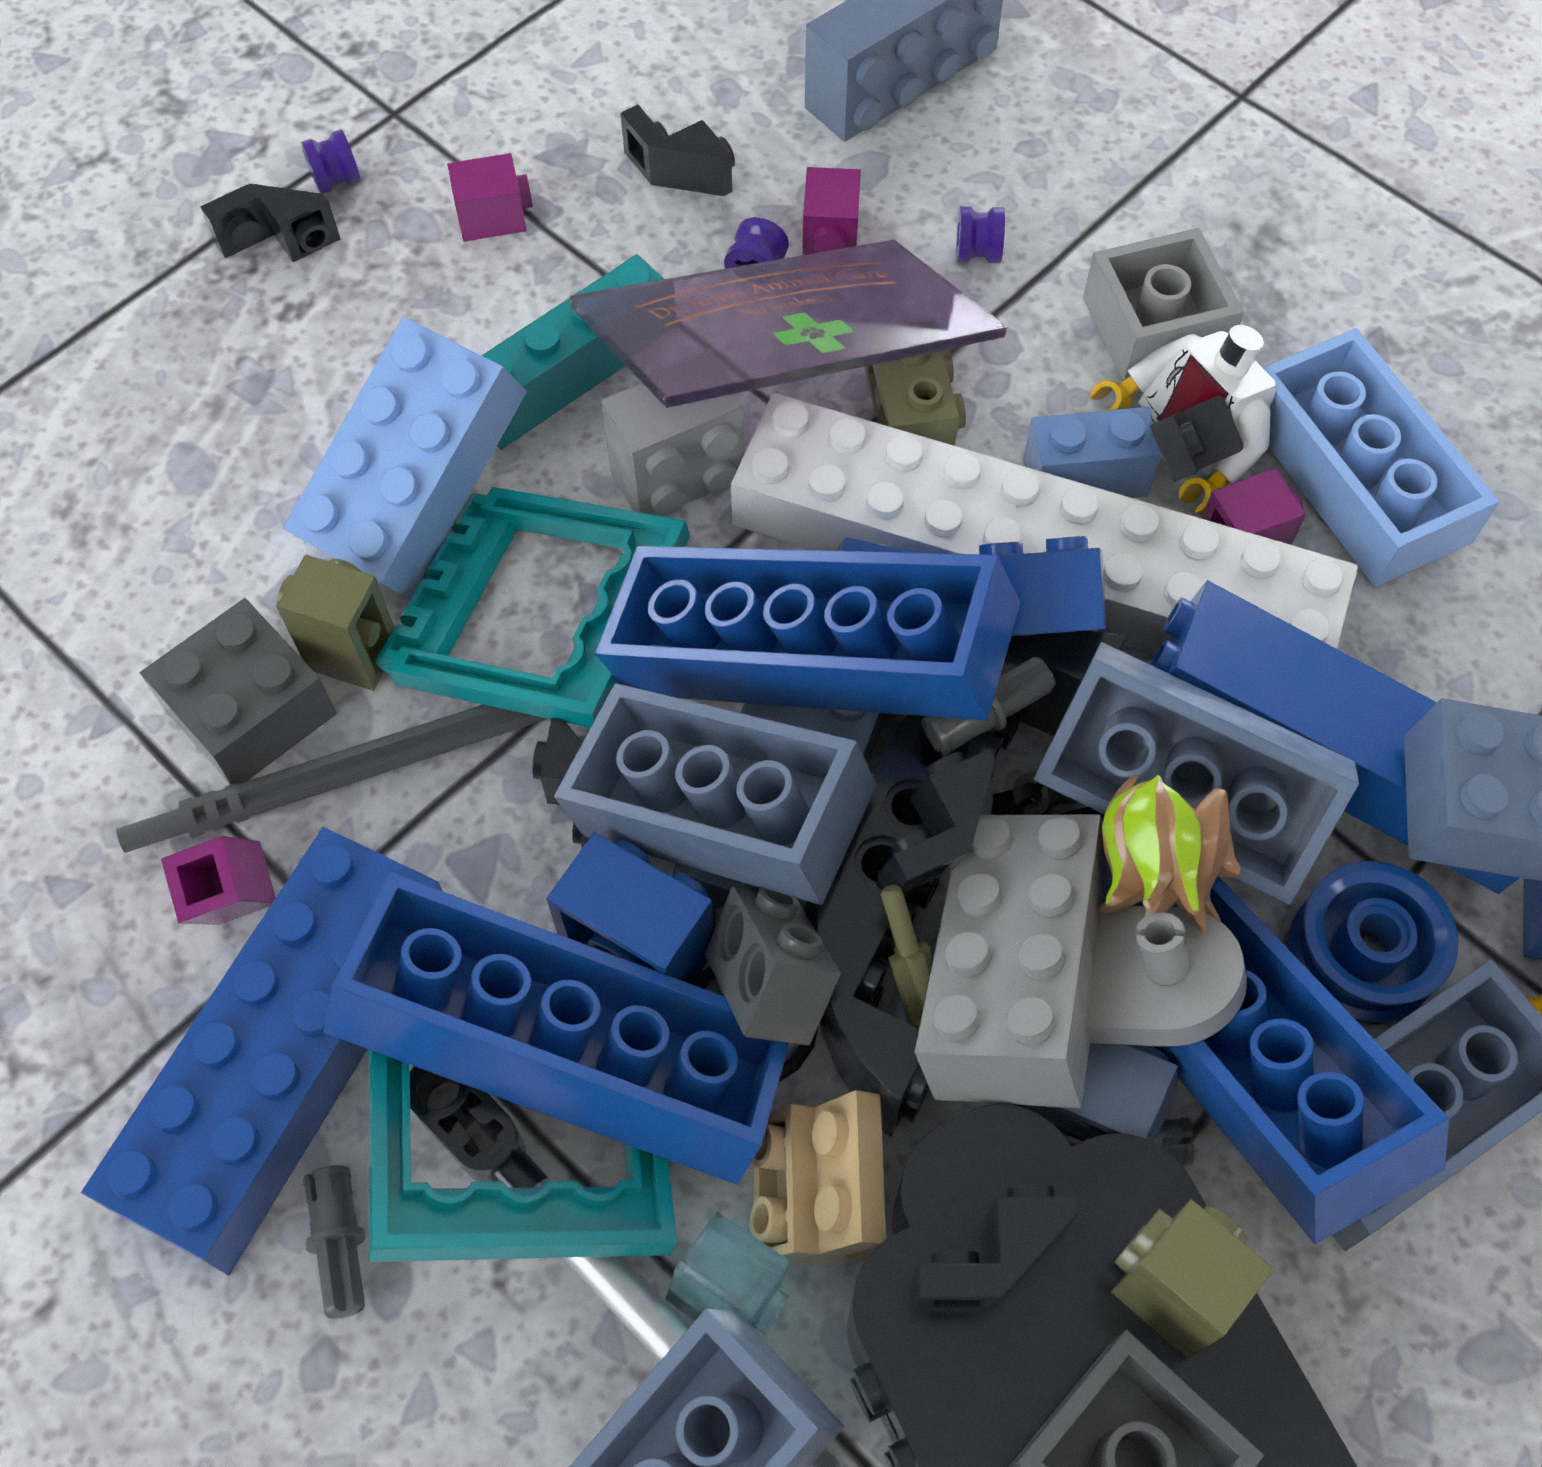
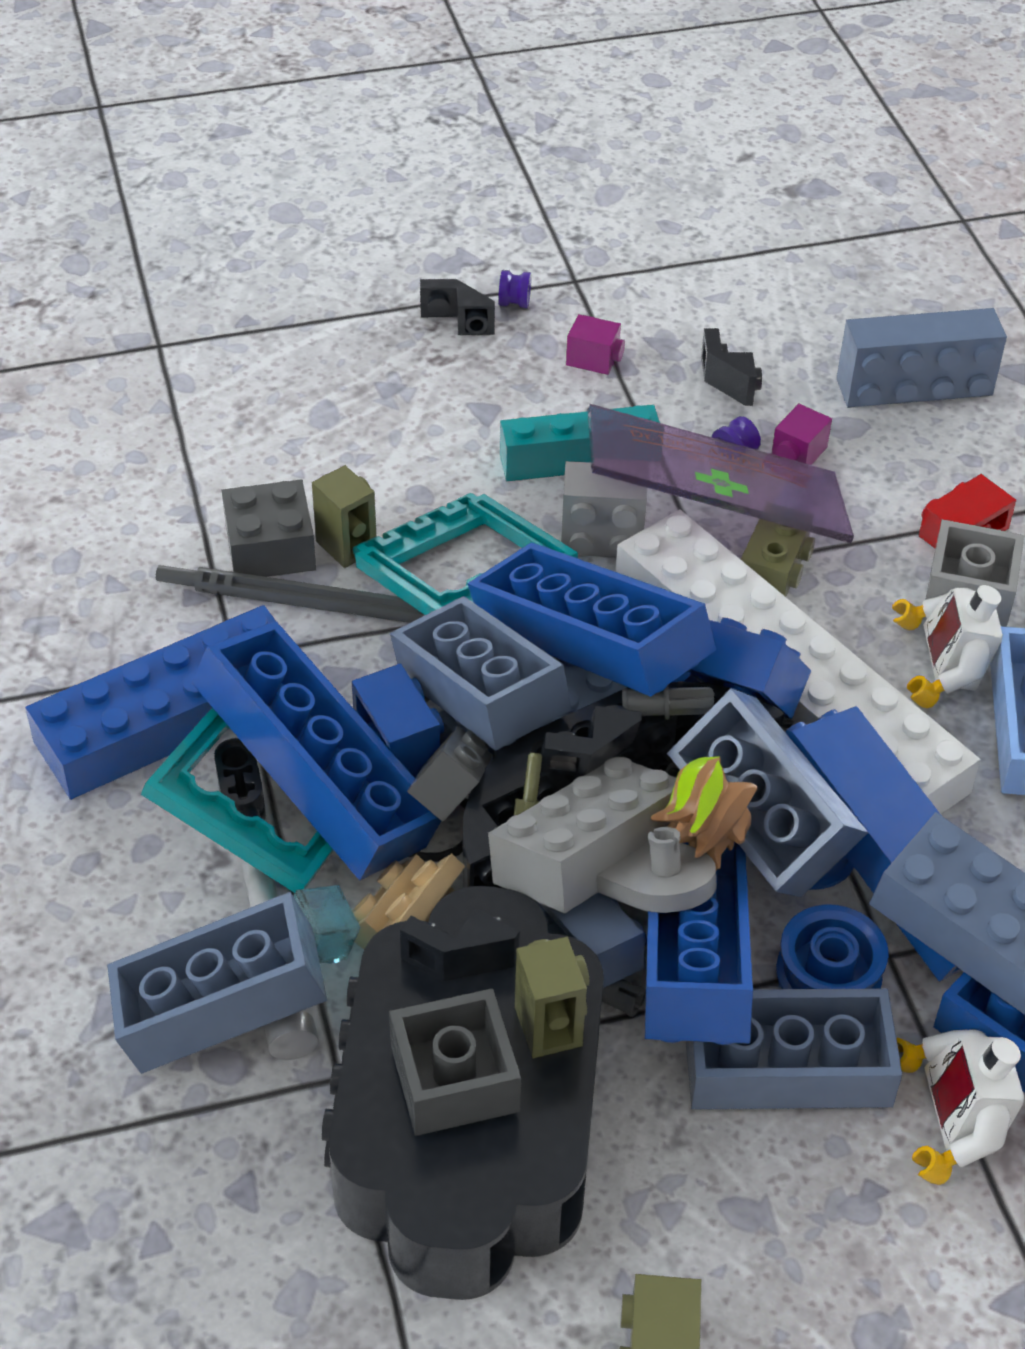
camera: 30 degrees right, 15 degrees down
(218, 881) = (191, 606): magenta brick -> none
(335, 1239) = (131, 809): dark grey axle -> none
(406, 456) = (440, 449): light blue brick -> none
(980, 234) = (889, 489): dark purple wheel -> none
(1093, 218) = (972, 503): none -> red brick
(1097, 449) = (867, 631): medium blue brick -> none
(1197, 437) = (923, 648): black slope -> none
(1258, 506) = (950, 708): magenta brick -> none

